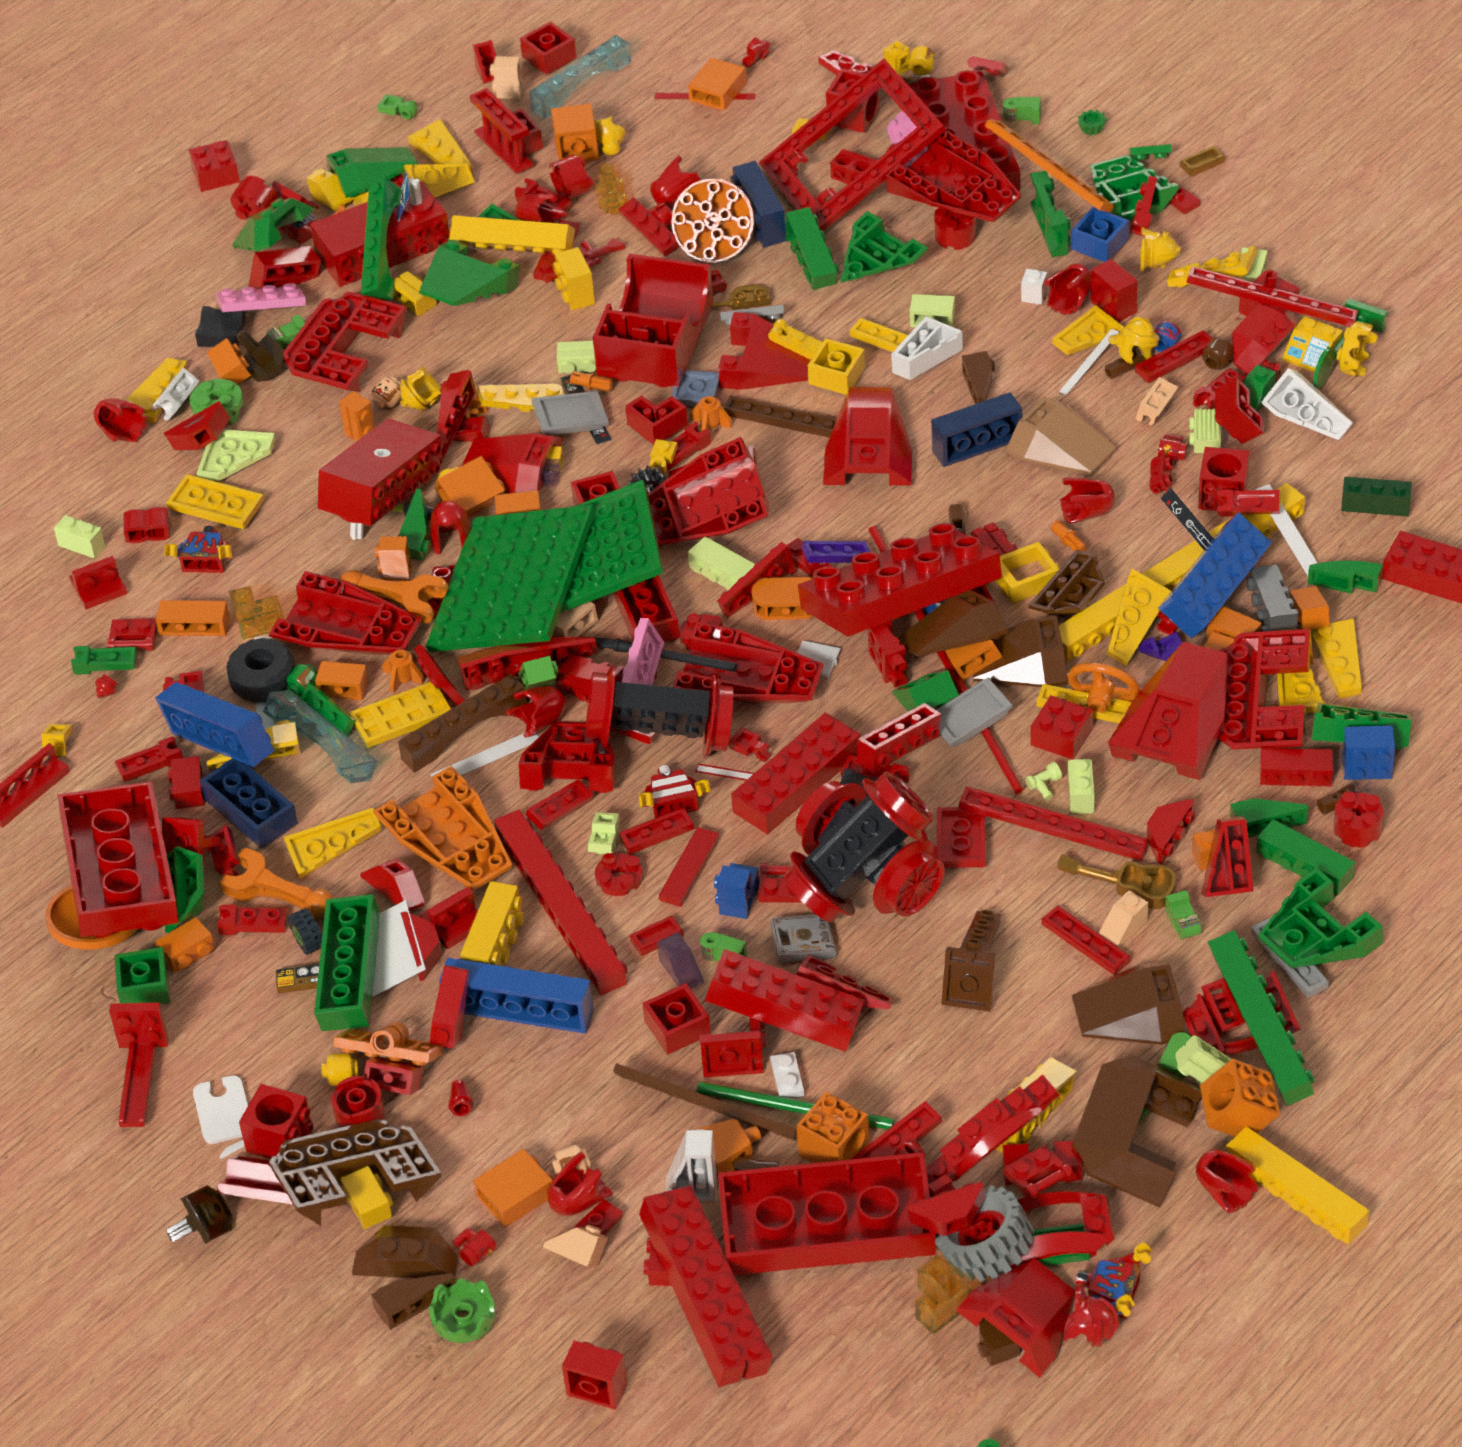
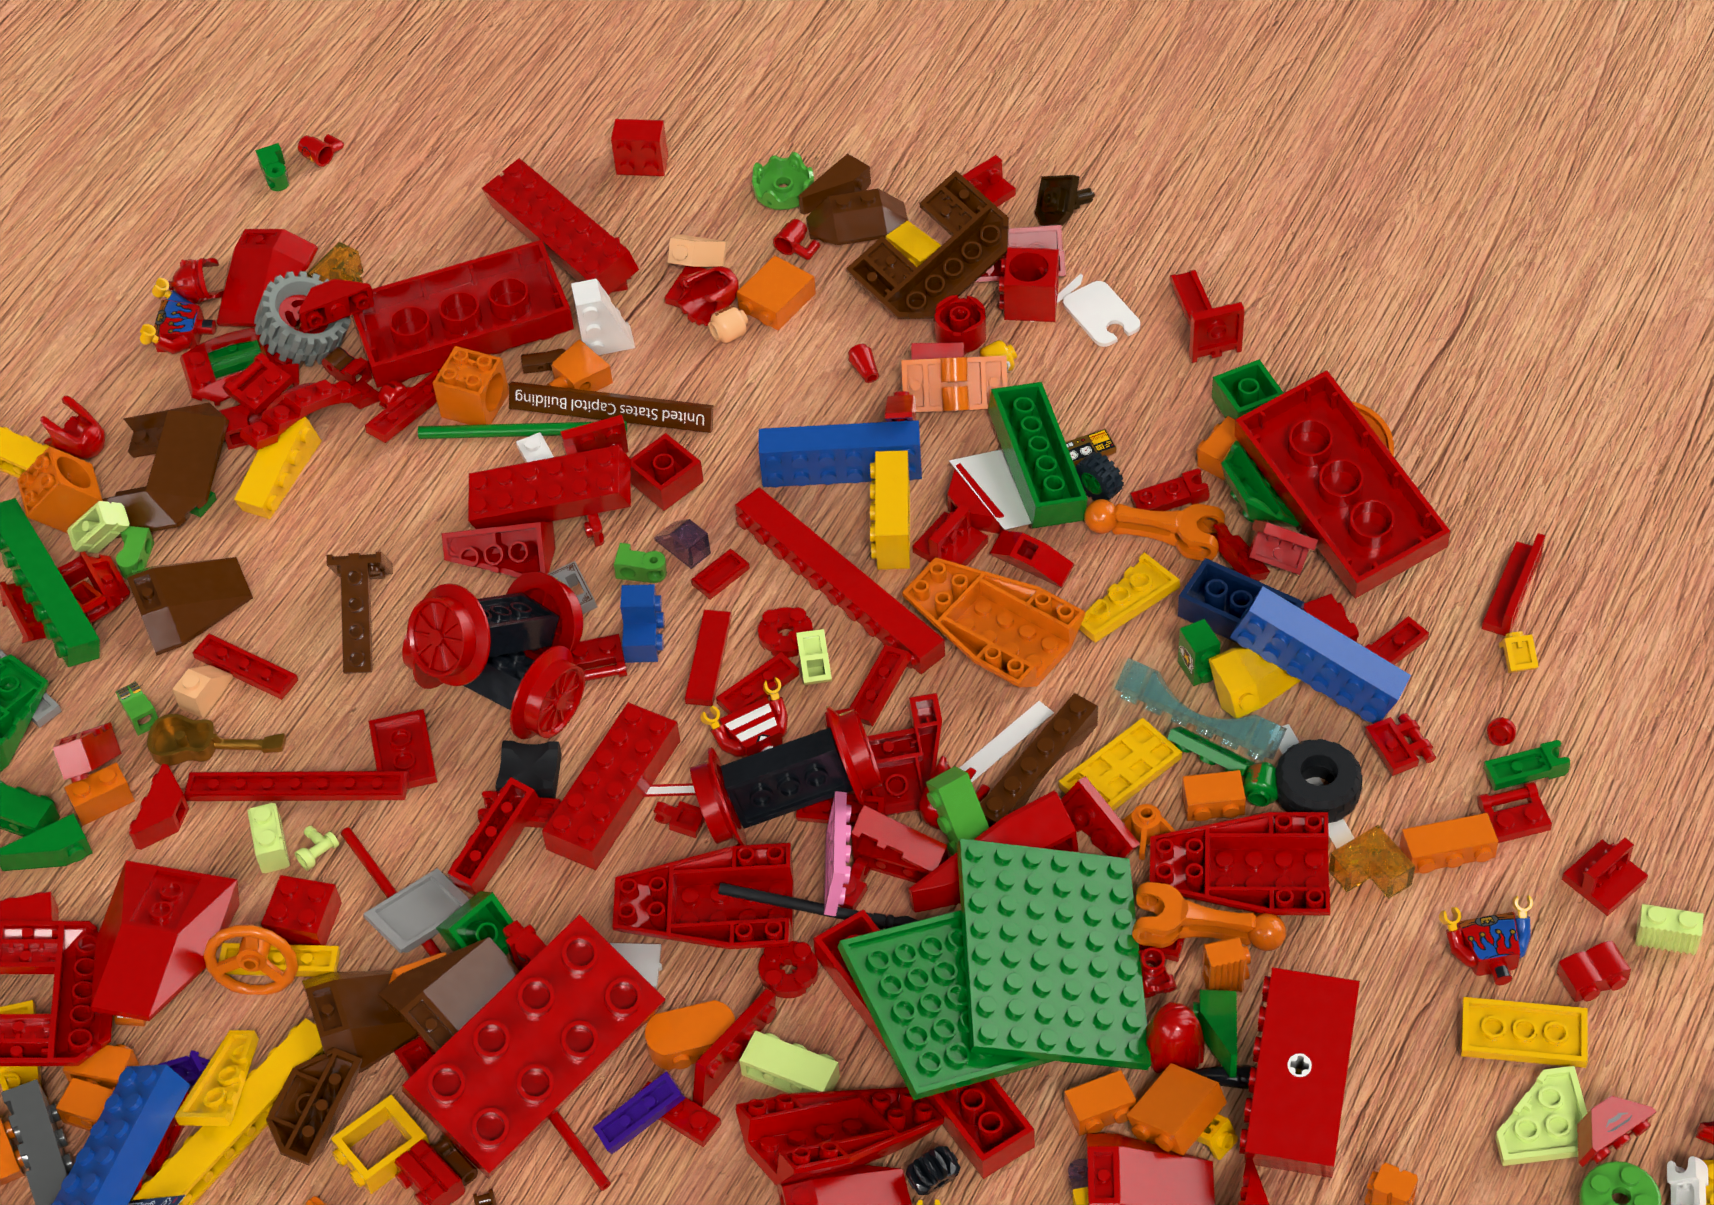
camera: 165 degrees right, 5 degrees up
(272, 1267) = (990, 182): none -> red bracket
(299, 769) = (1195, 647): none -> green brick

